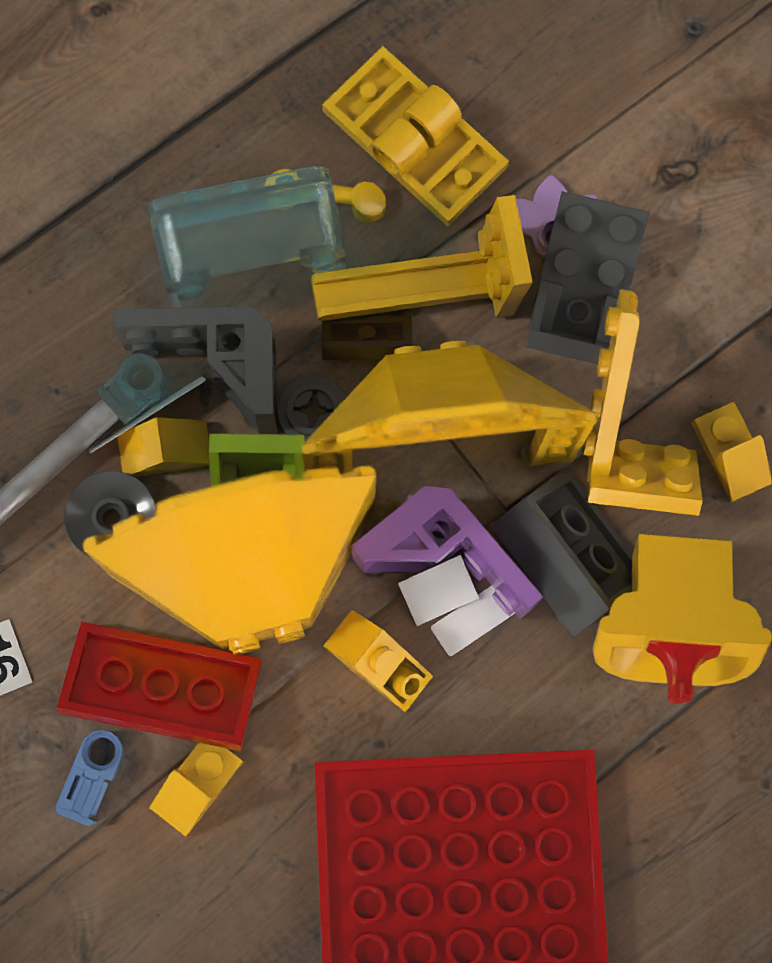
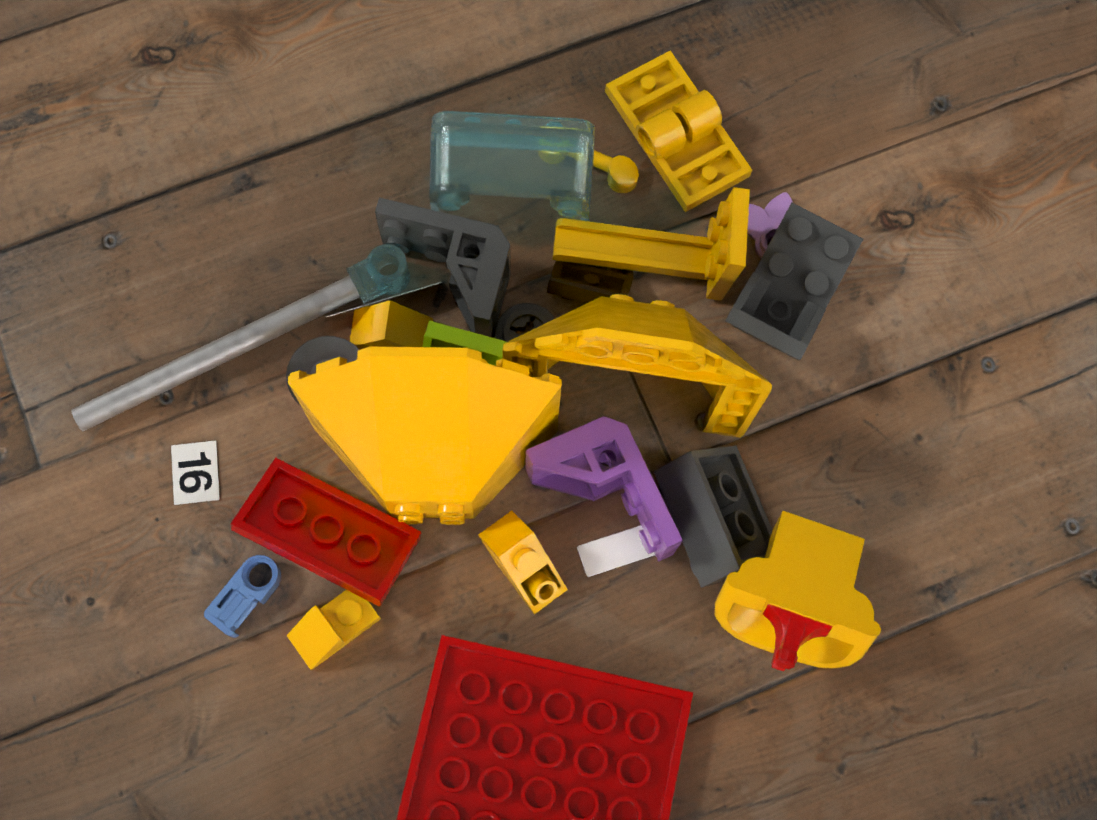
camera: 15 degrees right, 5 degrees down
(438, 590) = (592, 515): white sticker -> none
(627, 470) = (787, 454): yellow bracket -> none
(732, 451) = (885, 467): yellow slope -> none

